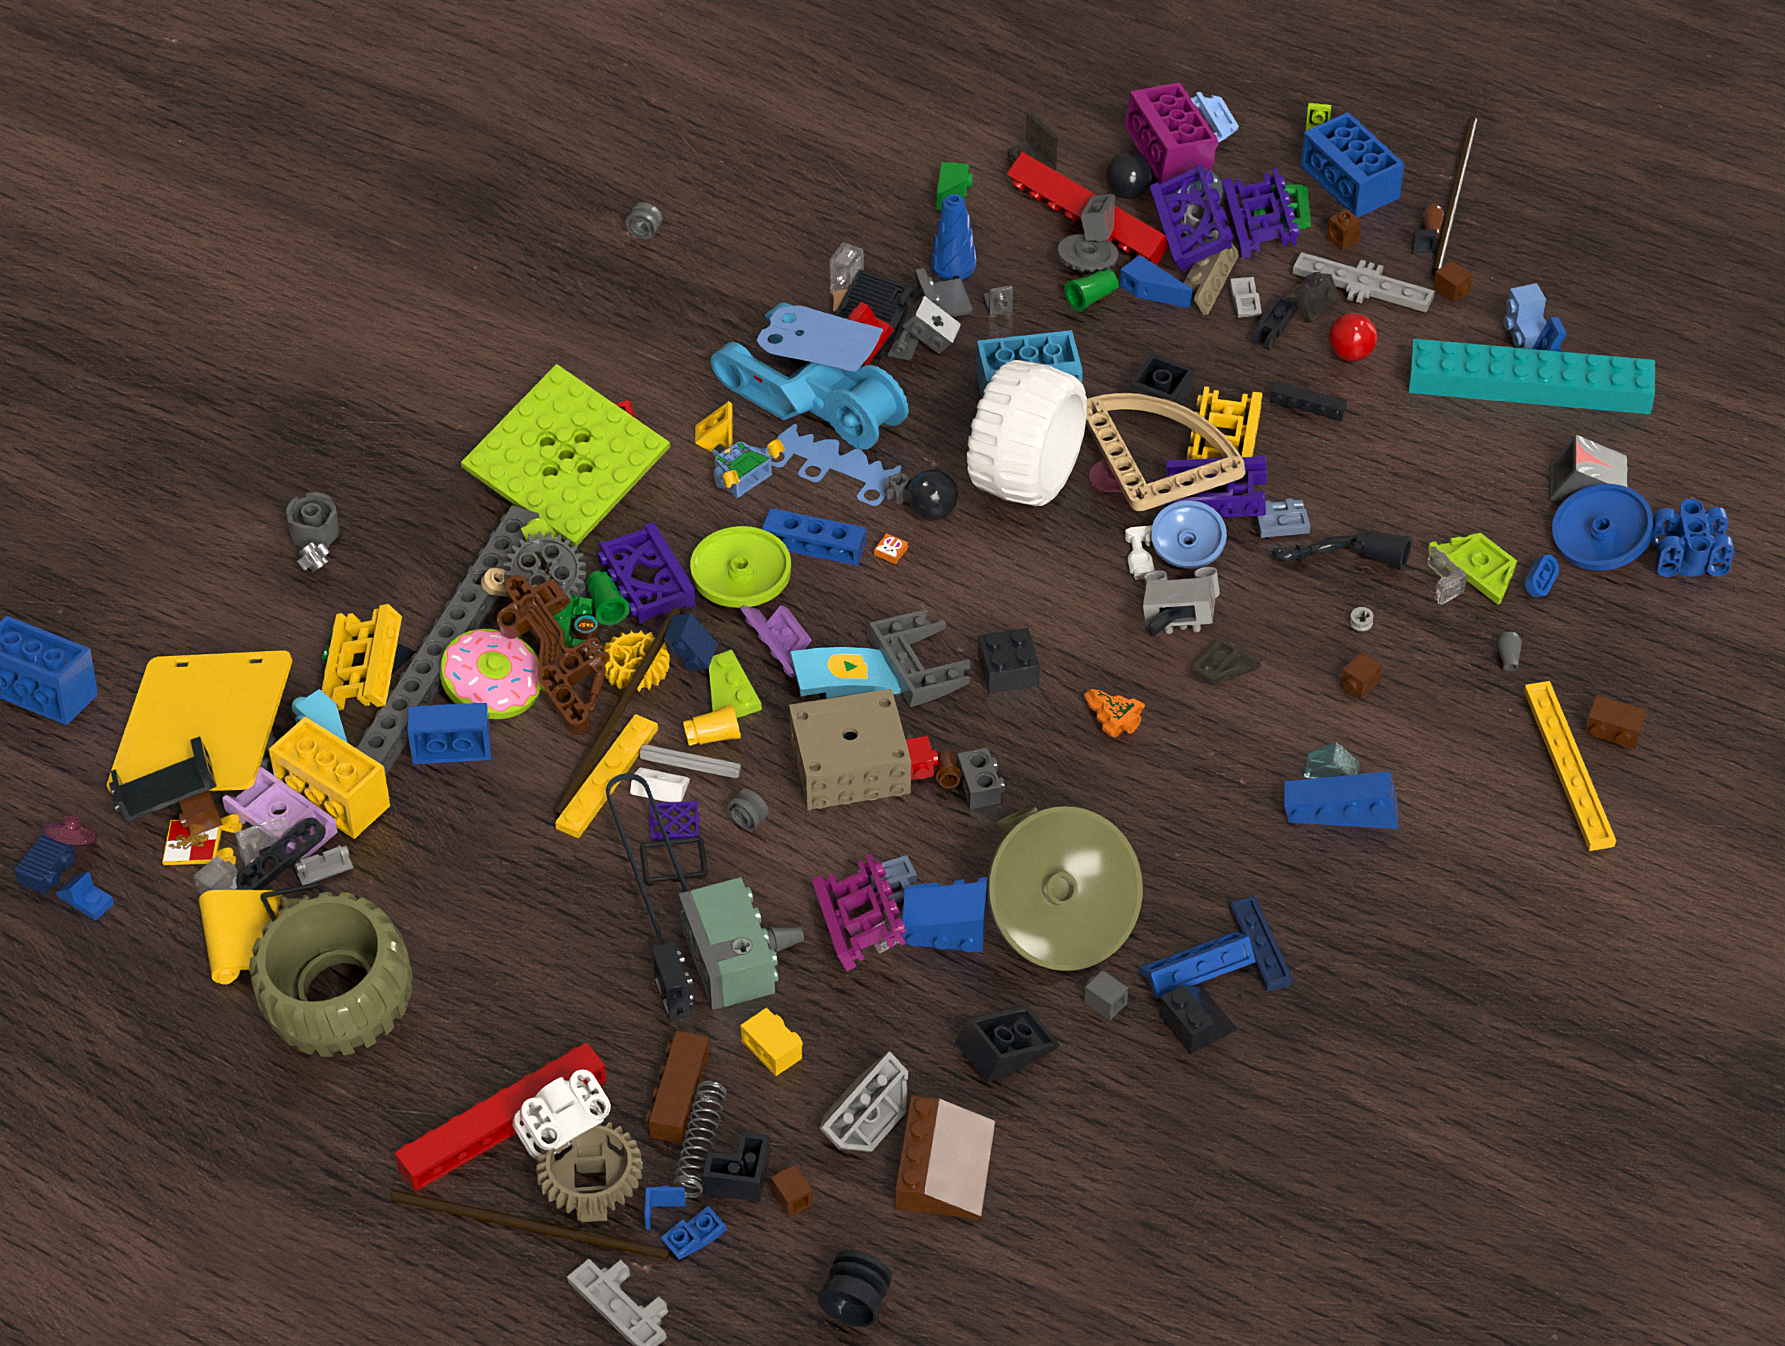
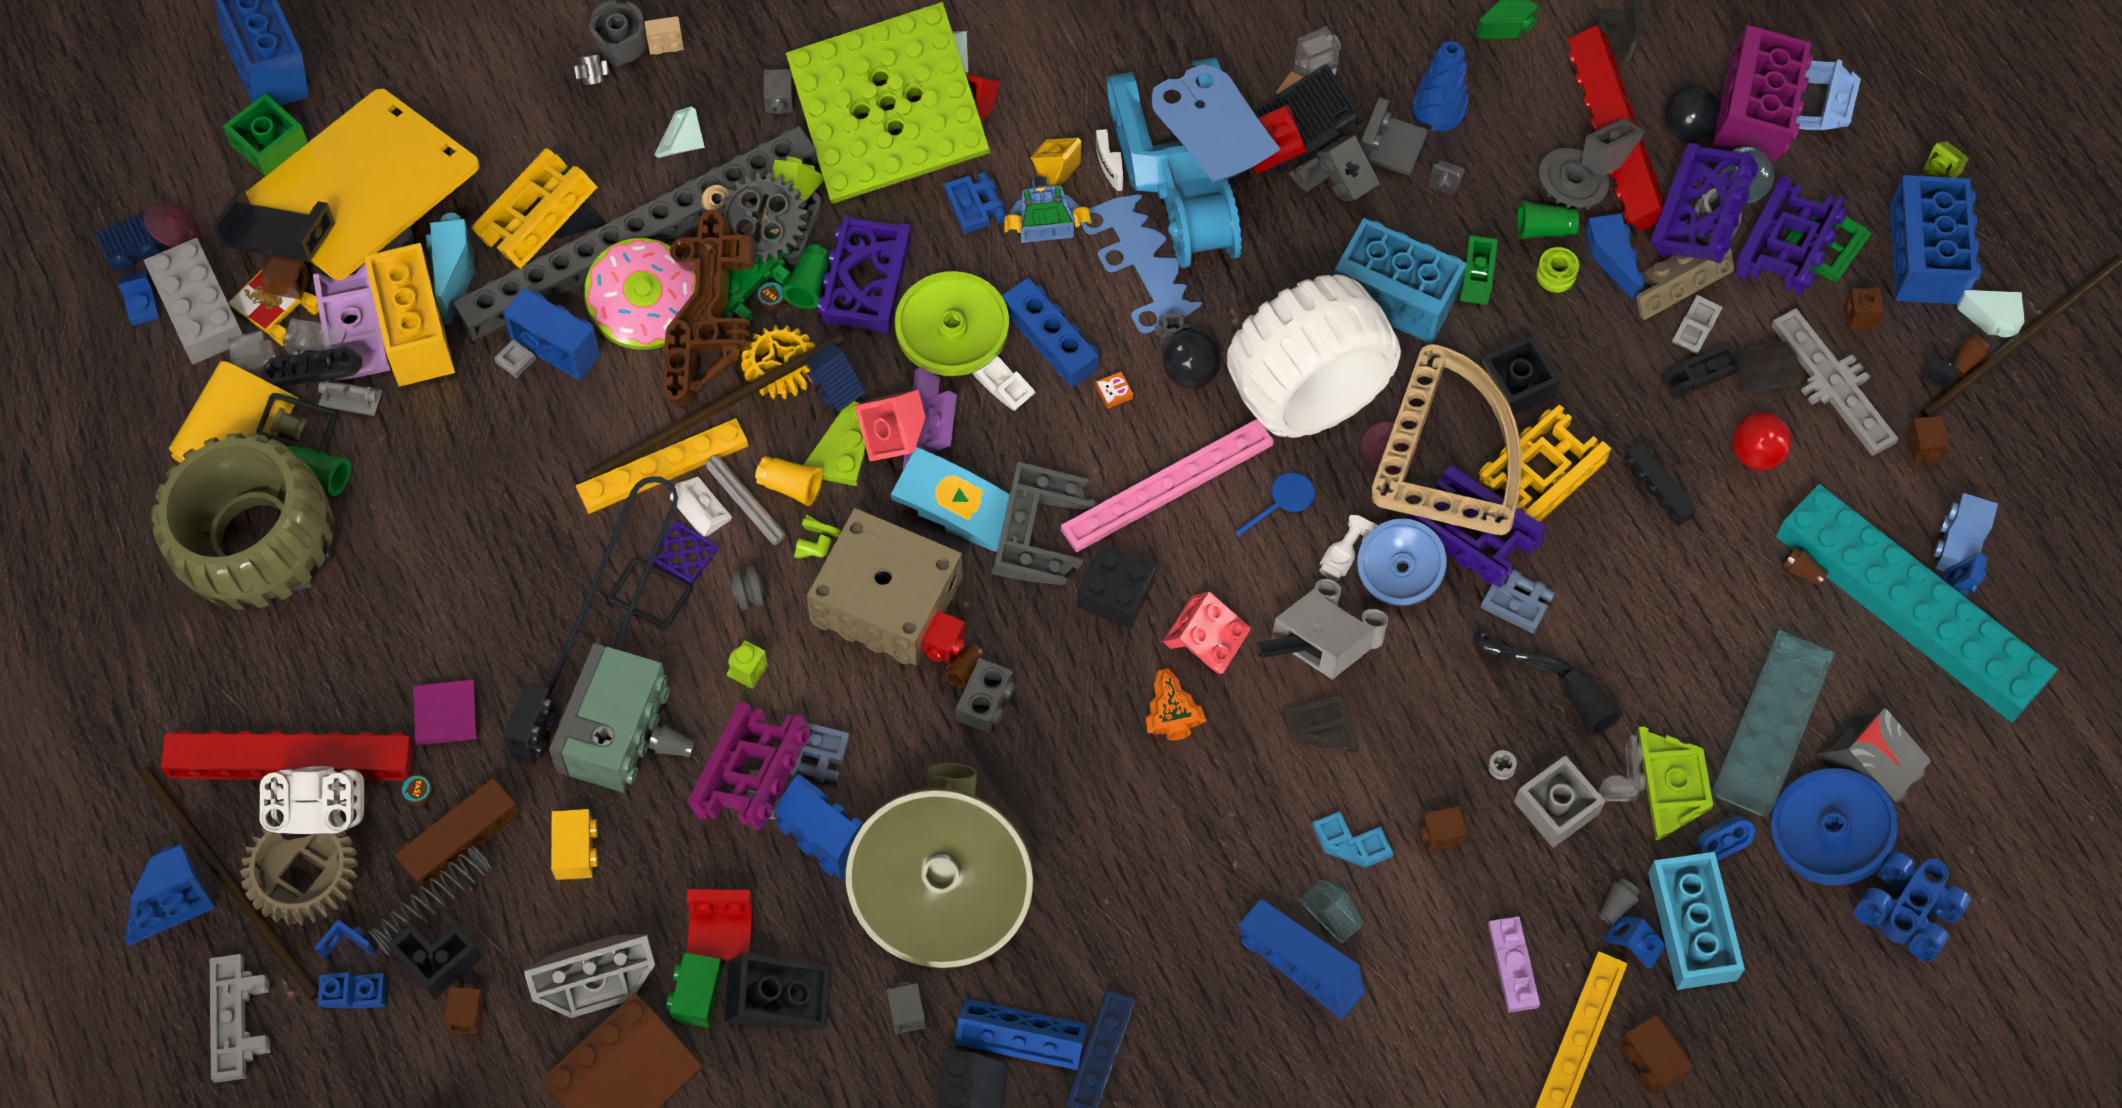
camera: 35 degrees right, 15 degrees up
(92, 732) = (265, 134): none -> green brick
(138, 870) = (193, 300): none -> light grey brick
(350, 505) = (664, 35): none -> tan piece
(419, 562) = (682, 134): none -> light aqua slope
(428, 771) = (515, 358): none -> light grey tile
(470, 496) = (778, 91): none -> flat silver brick
(502, 1247) = (166, 895): none -> blue wedge
(594, 1017) = (445, 712): none -> magenta tile
(619, 1081) = (416, 790): none -> reddish brown tile
(678, 492) = (967, 205): none -> blue plate
(757, 413) = (1110, 162): none -> white slope
(759, 649) = (891, 424): none -> coral slope
(767, 745) = (820, 549): none -> lime piece
(791, 857) = (747, 664): none -> lime brick
(816, 588) = (1004, 384): none -> white slope
(924, 1024) = (719, 922): none -> red bracket
(948, 1074) = (695, 990): none -> green brick
(983, 584) = (1166, 485): none -> bright pink plate
(1070, 542) = (1290, 492): none -> blue piece
(1084, 338) = (1479, 270): none -> green brick
(1093, 647) = (1208, 631): none -> coral bracket
(1126, 313) = (1555, 280): none -> lime wheel
(1296, 726) = (1360, 850): none -> dark azure tile
(1420, 613) = (1559, 801): none -> light grey brick
(1425, 188) = (1993, 311): none -> light aqua slope
(1442, 395) = (1802, 565): none -> reddish brown cone
(1477, 728) = (1513, 964): none -> lavender plate
(1510, 493) = (1772, 724): none -> clear light blue brick
(1540, 661) = (1639, 938): none -> blue bracket
(1569, 630) = (1696, 920): none -> medium azure brick

